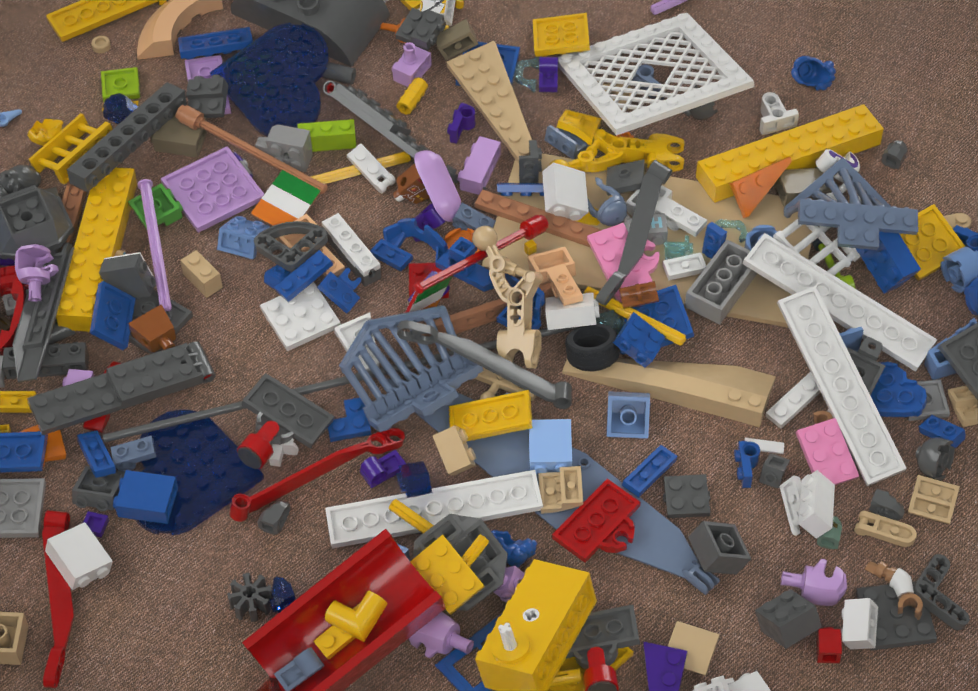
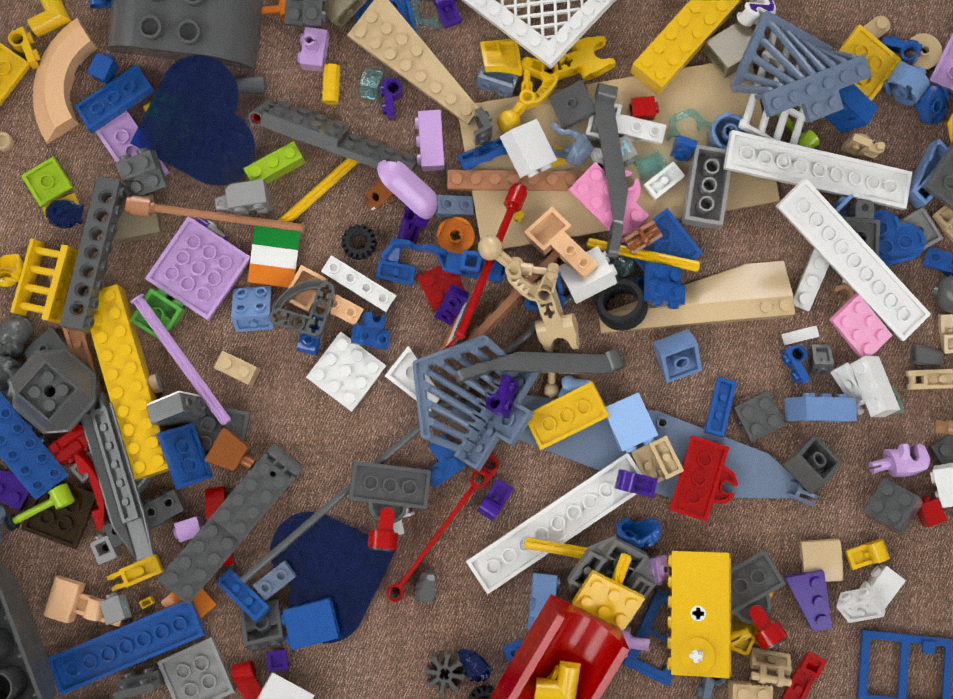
camera: 25 degrees left, 30 degrees up
(30, 269) = (88, 447): lavender piece -> none
(219, 19) = (103, 68): none -> blue brick
(303, 276) = (333, 336): blue plate -> none
(370, 210) = (355, 231): none -> black tyre
(371, 168) = (333, 186): white plate -> none
(414, 479) = (531, 506): clear blue brick -> none
(435, 375) = (505, 397): none -> dark purple plate
(446, 106) = (370, 83): none -> clear light blue bracket
(454, 450) = (551, 462): tan brick -> none
(525, 491) = (636, 483): none -> dark purple plate
(694, 201) = (644, 107): none -> red brick
(746, 659) = (867, 553): none -> yellow plate
(753, 187) = (693, 70): orange wing -> none
(754, 507) = (820, 408): none -> medium blue wedge
(892, 299) = (861, 145): none -> tan plate

